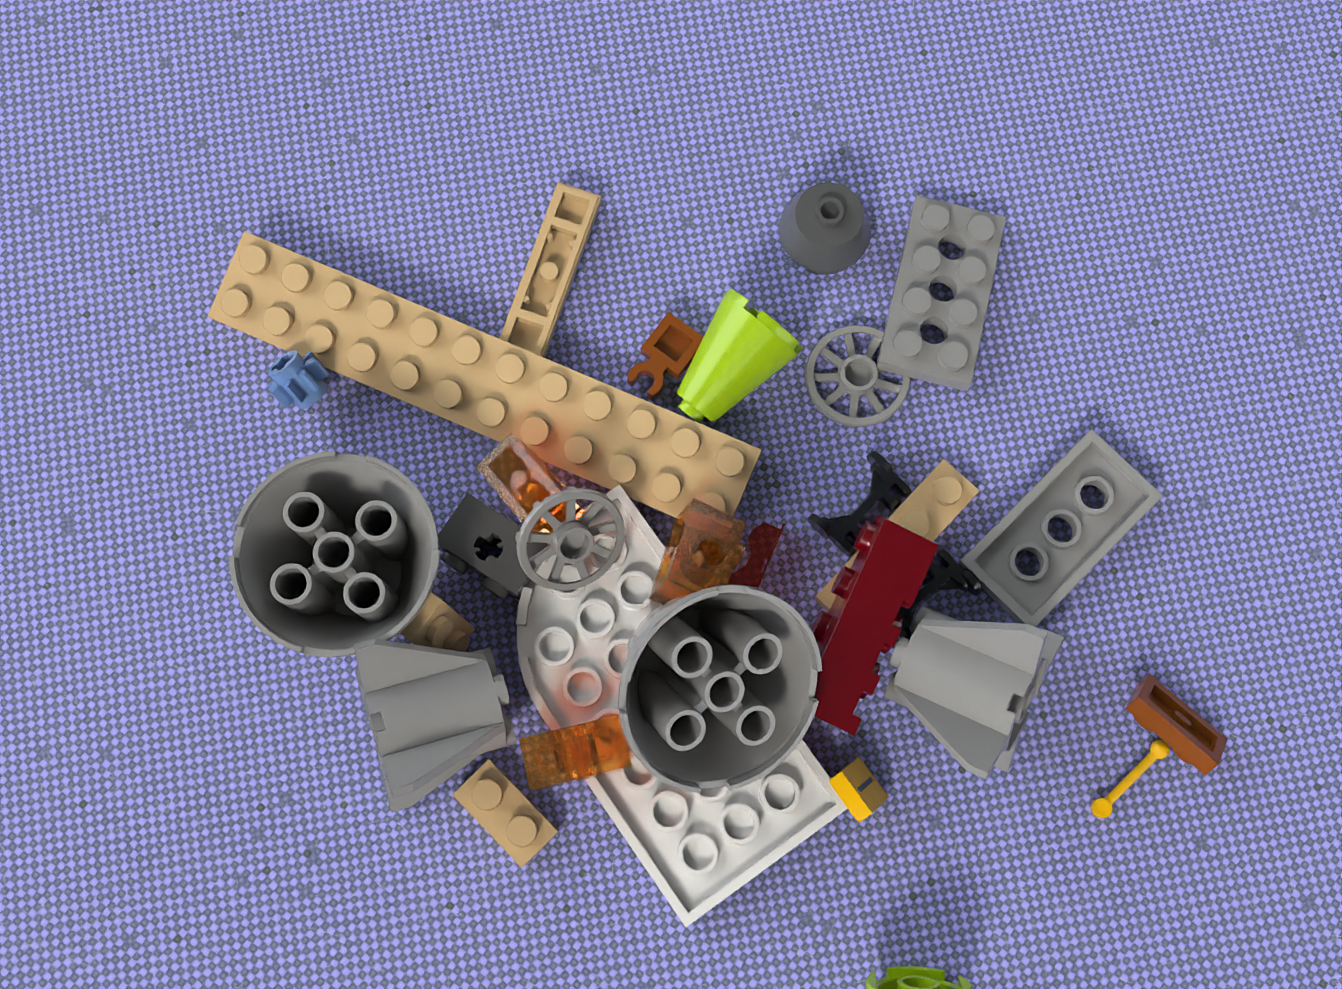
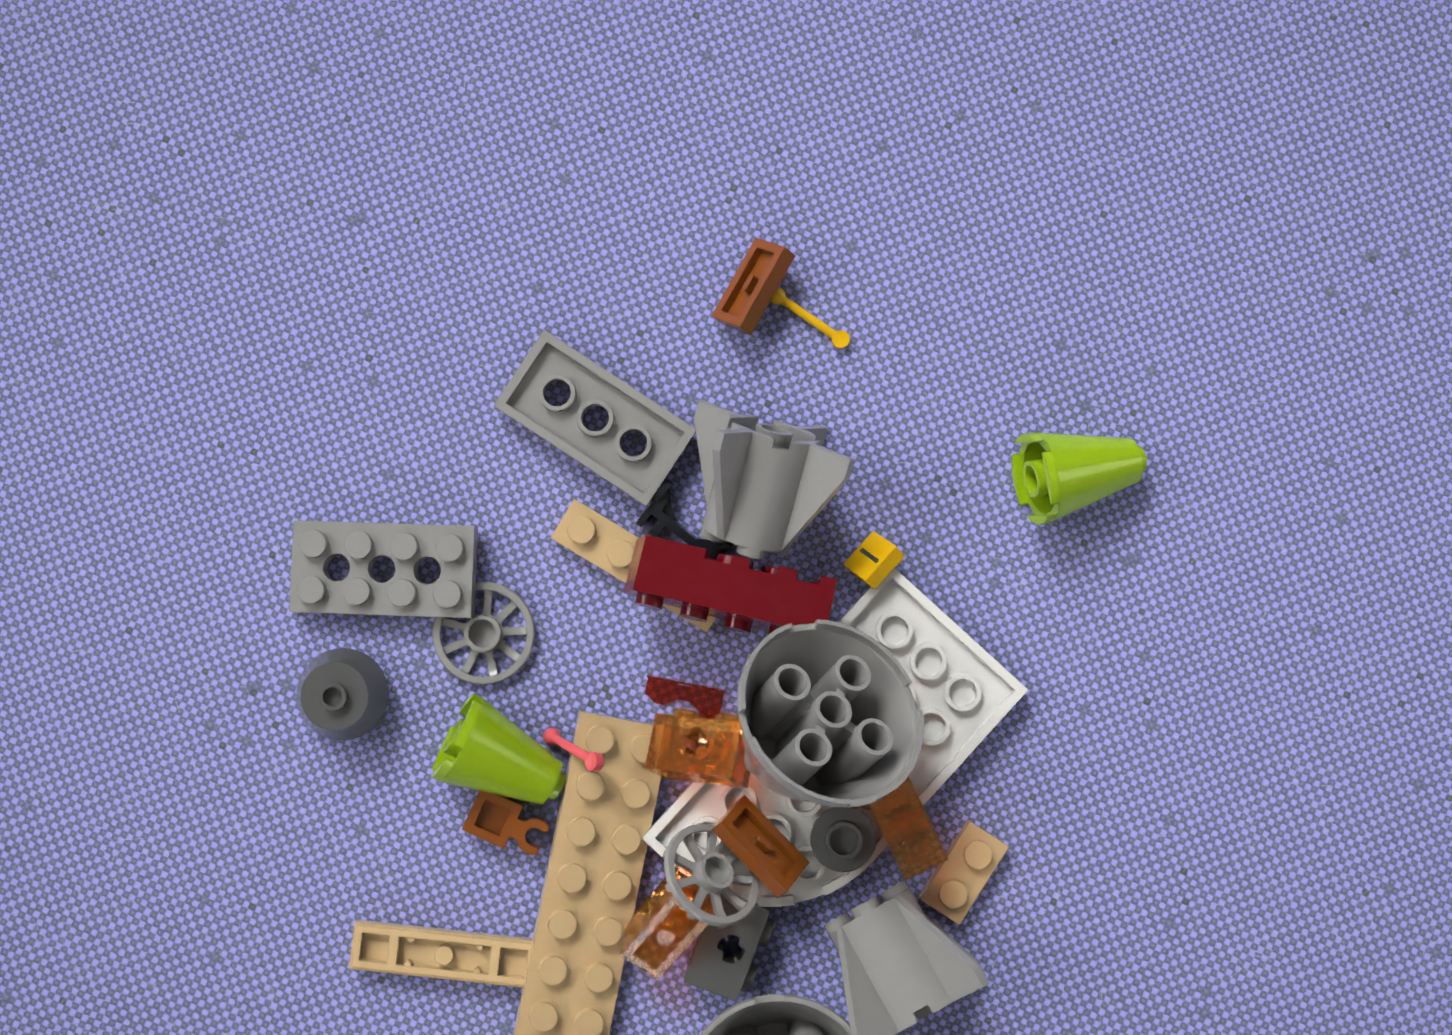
camera: 100 degrees left, 10 degrees up
(439, 627) = (818, 975): tan plate -> none
(573, 688) = (843, 839): none -> dark grey piece
(586, 599) = (760, 846): none -> dark orange plate
(713, 447) = (593, 760): none -> coral hinge
(882, 480) = (584, 591): black piece -> none

